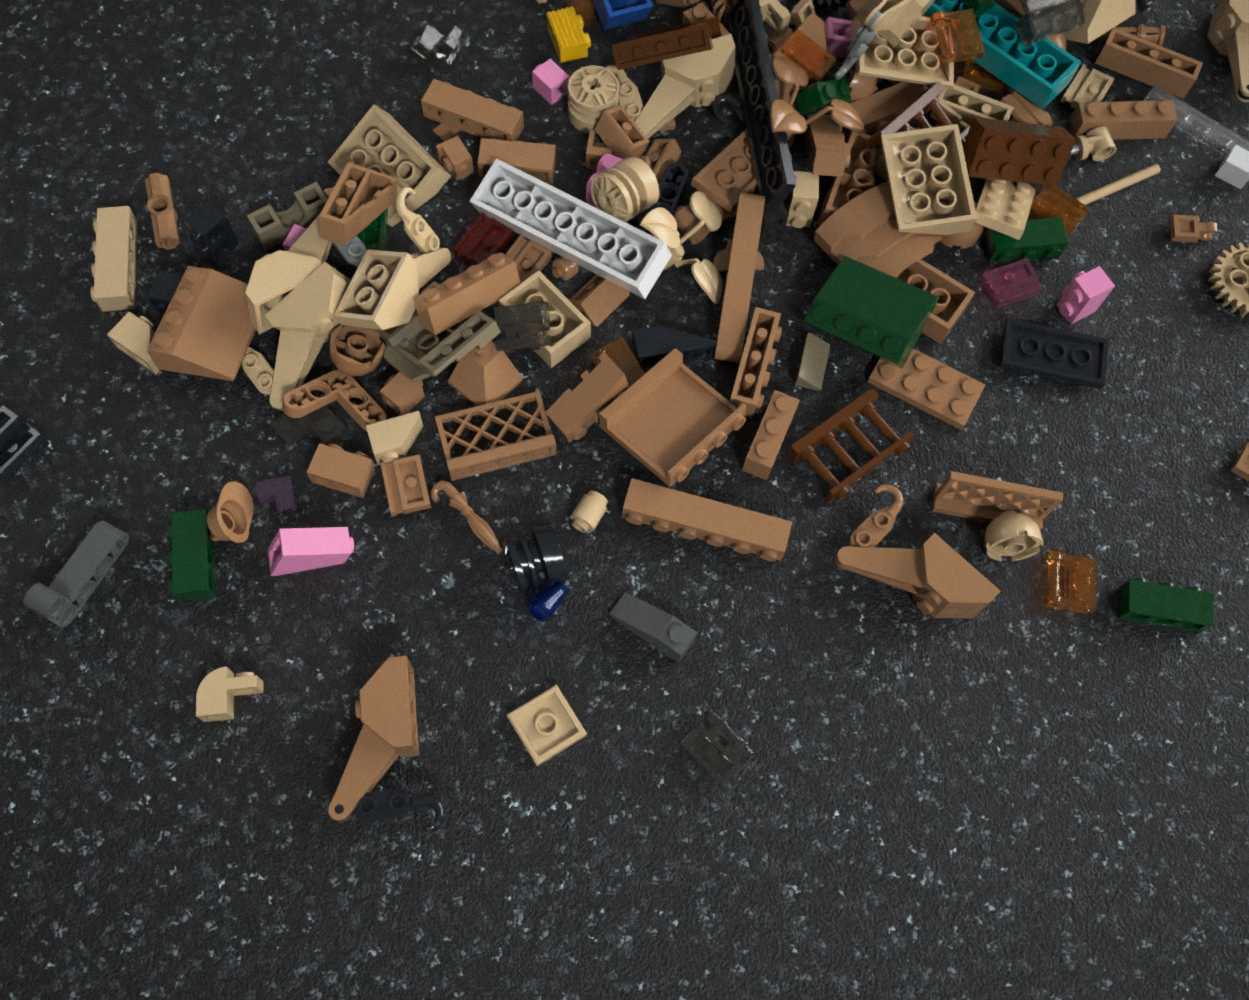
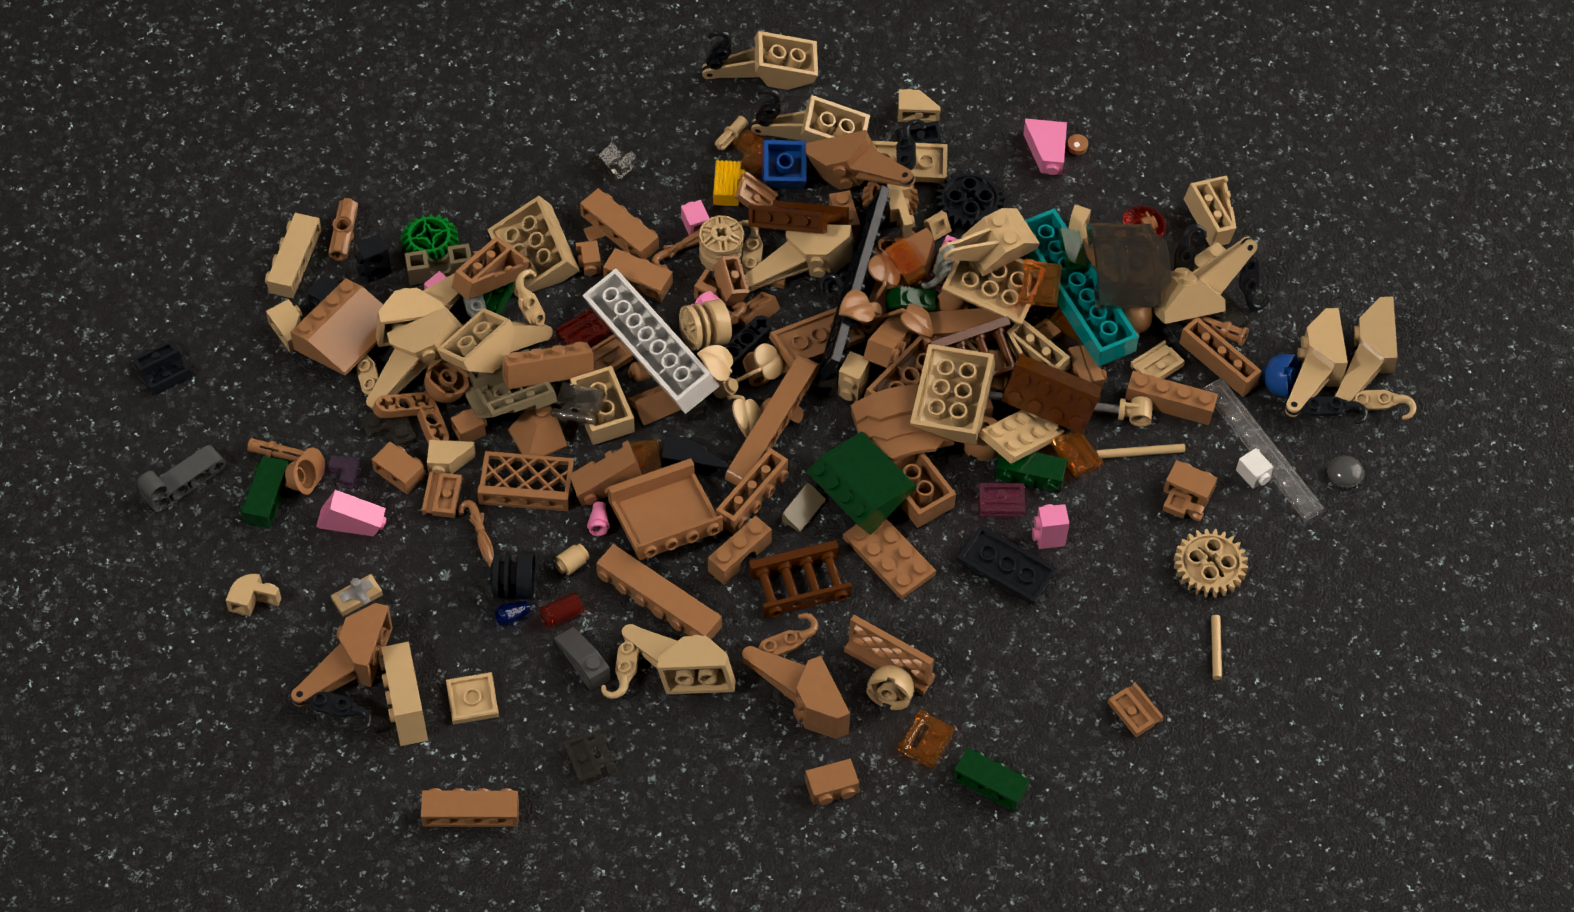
camera: 25 degrees right, 10 degrees down
(159, 501) = (257, 446): none -> medium nougat pin
(266, 186) = (438, 230): none -> green gear
(355, 645) = (356, 595): none -> piece
(465, 753) = (403, 693): none -> tan wedge
(538, 125) = (670, 250): none -> medium nougat piece
(598, 454) = (598, 521): none -> bright pink cone
(601, 34) = (753, 191): none -> medium nougat plate
(604, 577) = (561, 610): none -> clear red piece
(609, 874) = (469, 808): none -> medium nougat brick
(780, 597) = (684, 665): none -> tan slope
(1001, 675) = (832, 782): none -> medium nougat brick
(1187, 200) = (1191, 482): none -> medium nougat brick
(1217, 65) = (1281, 374): none -> blue cylinder

